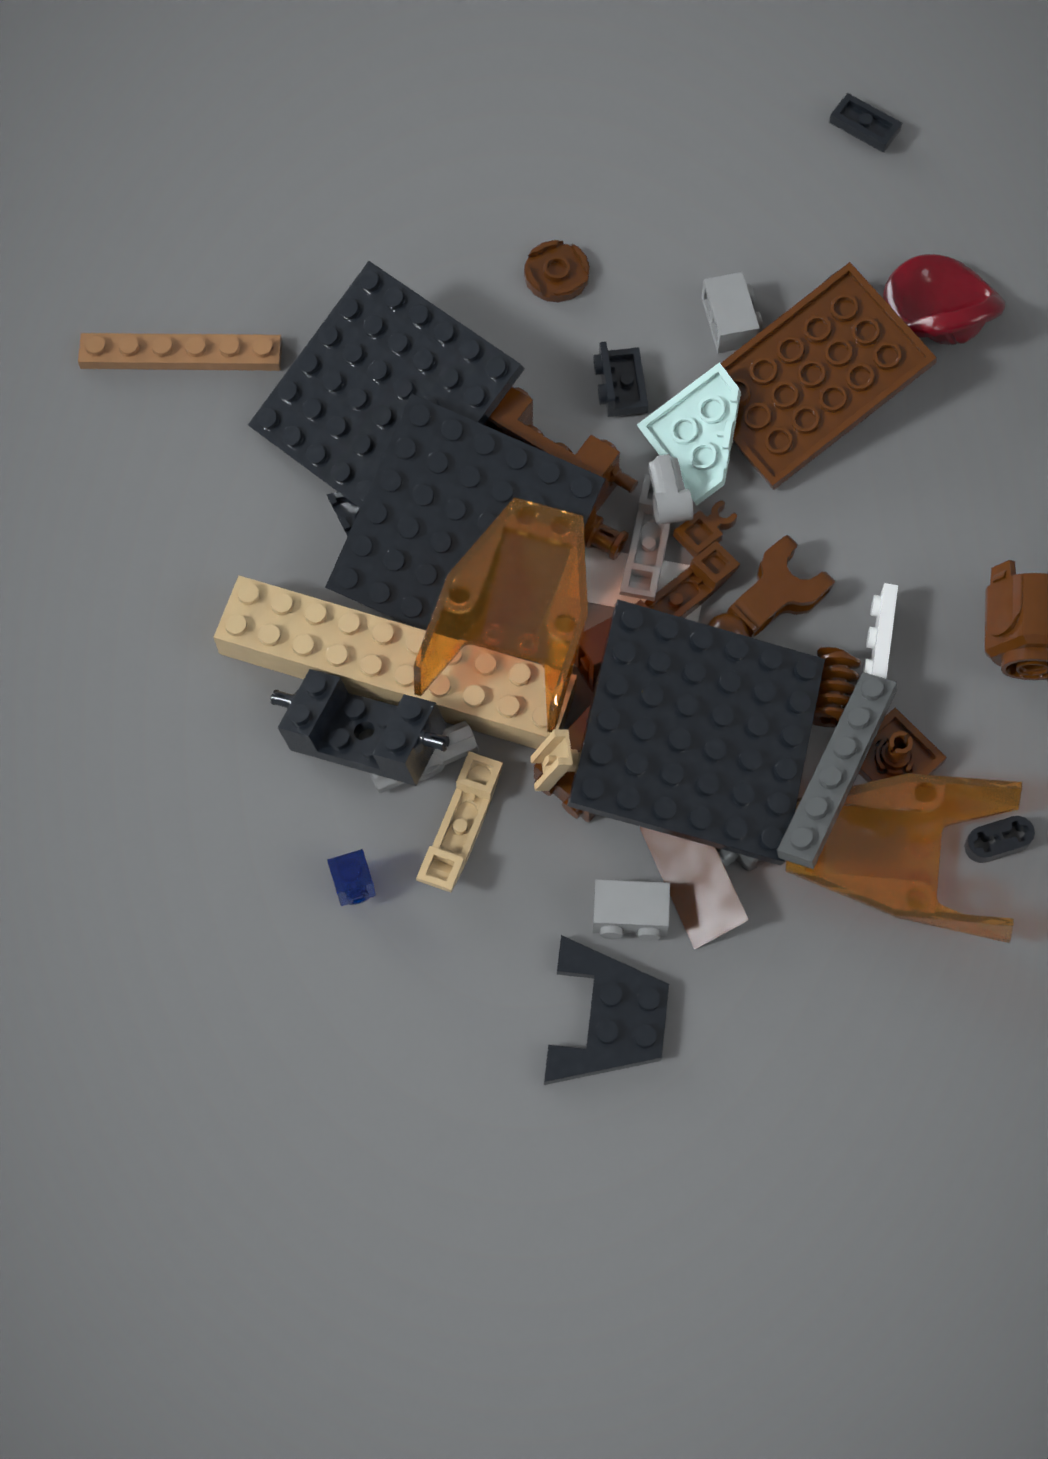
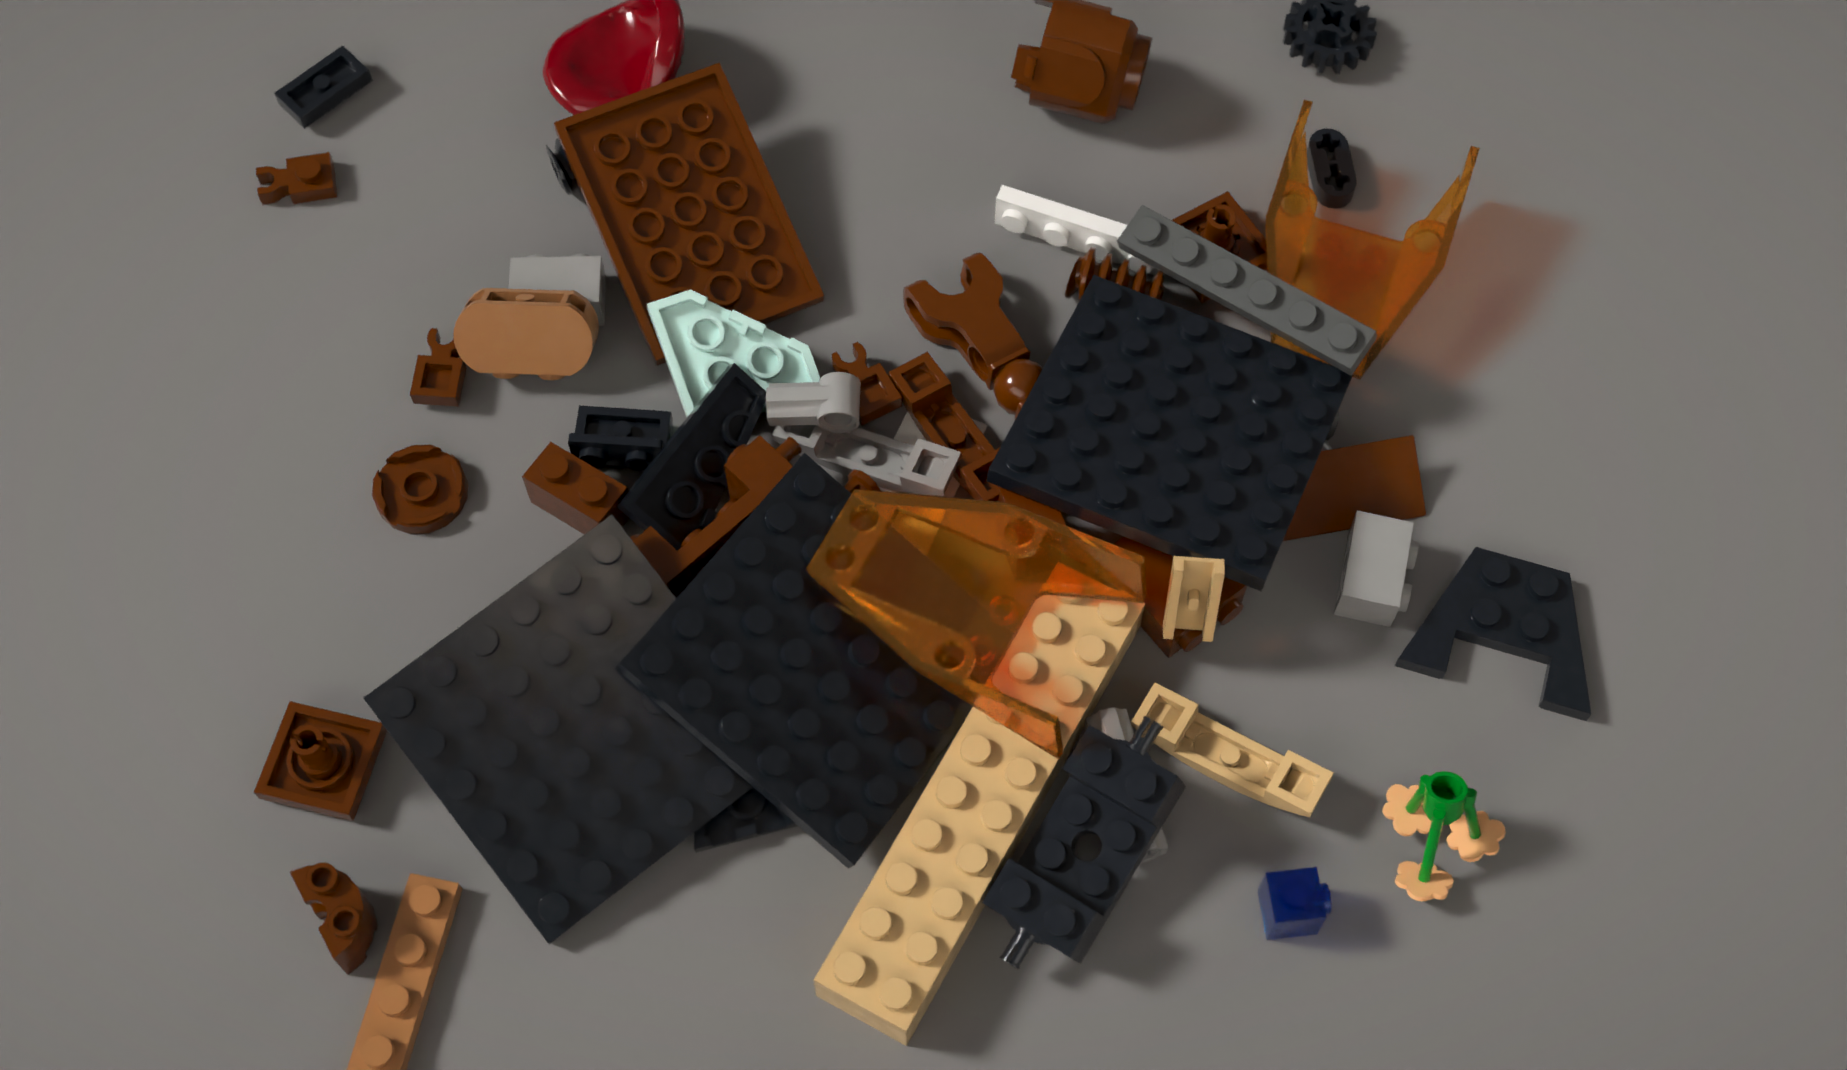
camera: 80 degrees left, 5 degrees down
(245, 305) = (347, 912): none -> reddish brown cylinder
(340, 259) = (321, 761): none -> reddish brown plate
(435, 961) = (1428, 807): none -> plant
(568, 363) = (573, 489): none -> reddish brown brick
(576, 416) = (689, 473): none -> black wing
(644, 257) = (438, 377): none -> reddish brown plate
(684, 297) = (526, 332): none -> medium nougat brick
(784, 134) = (304, 179): none -> reddish brown plate

